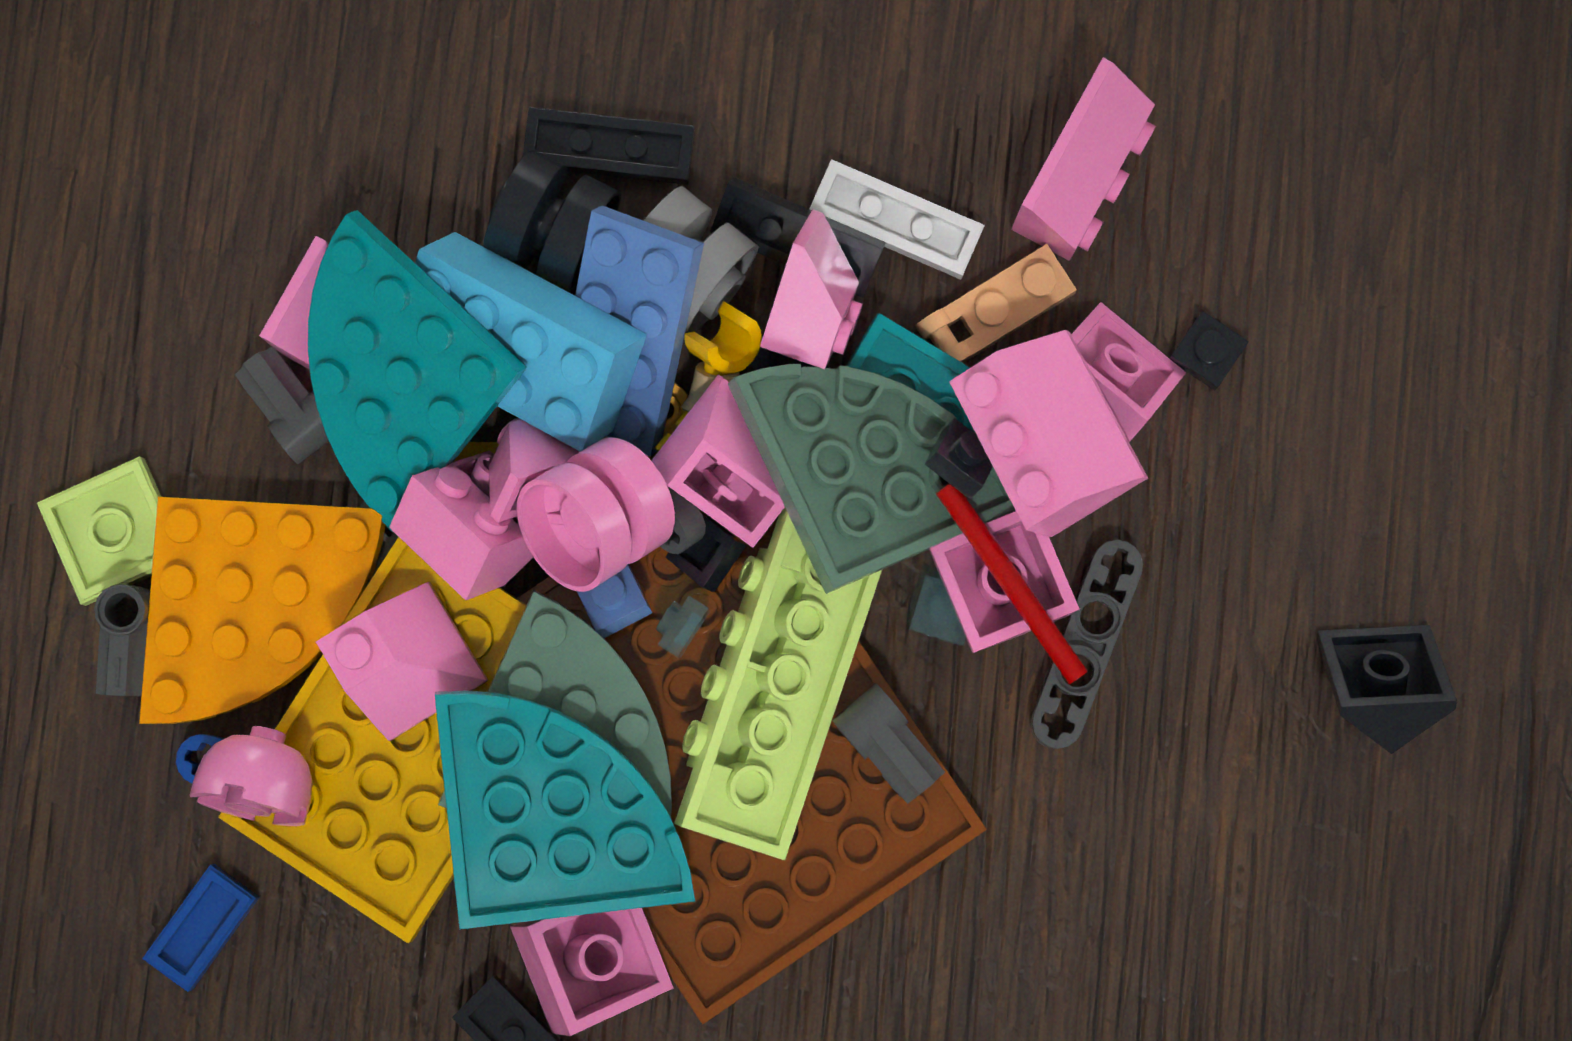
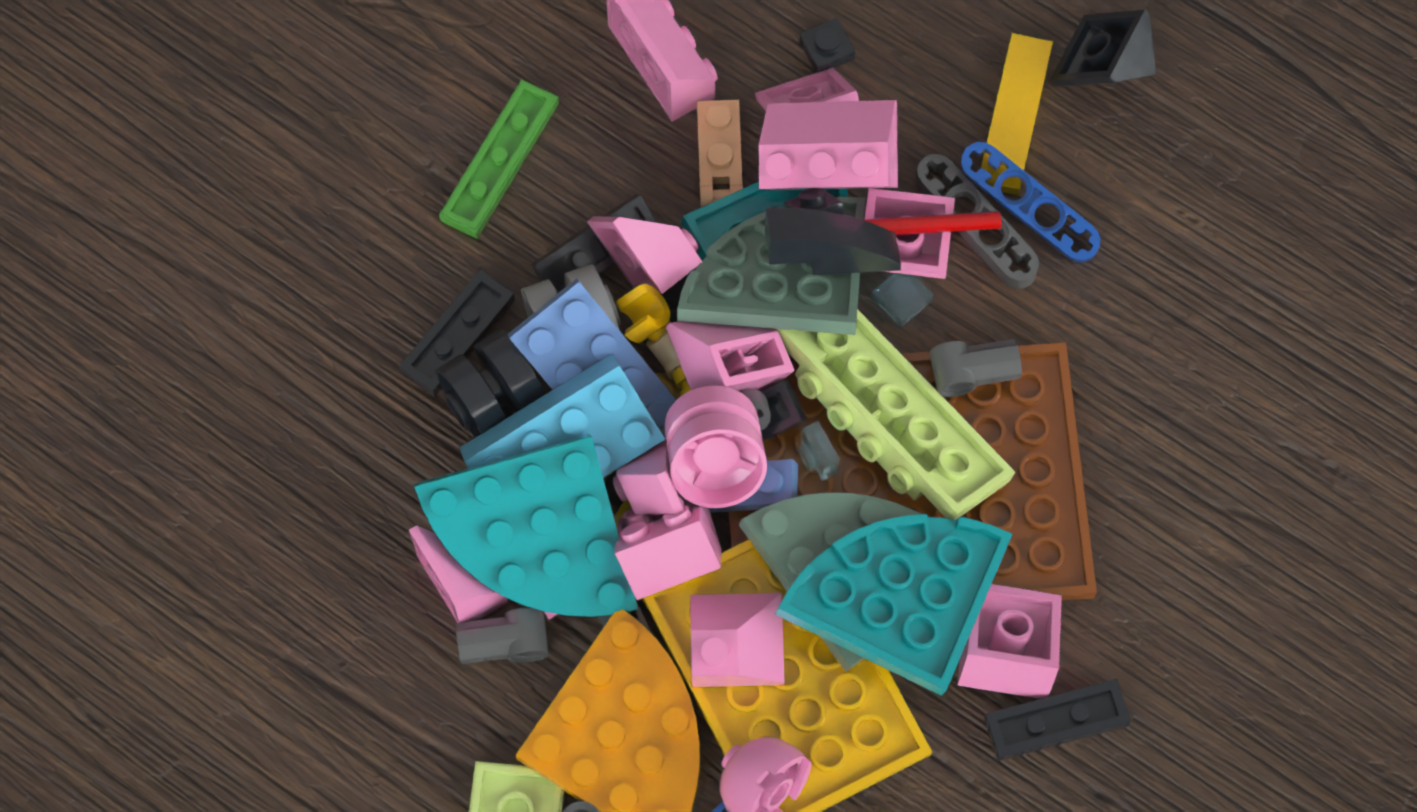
camera: 60 degrees left, 15 degrees down
(849, 65) = (499, 159): none -> bright green tile
(898, 218) = (630, 174): white plate -> none
(922, 502) = (829, 242): none -> black slope
(1149, 696) = (1025, 208): none -> blue beam
(1250, 614) = (1017, 105): none -> yellow tile

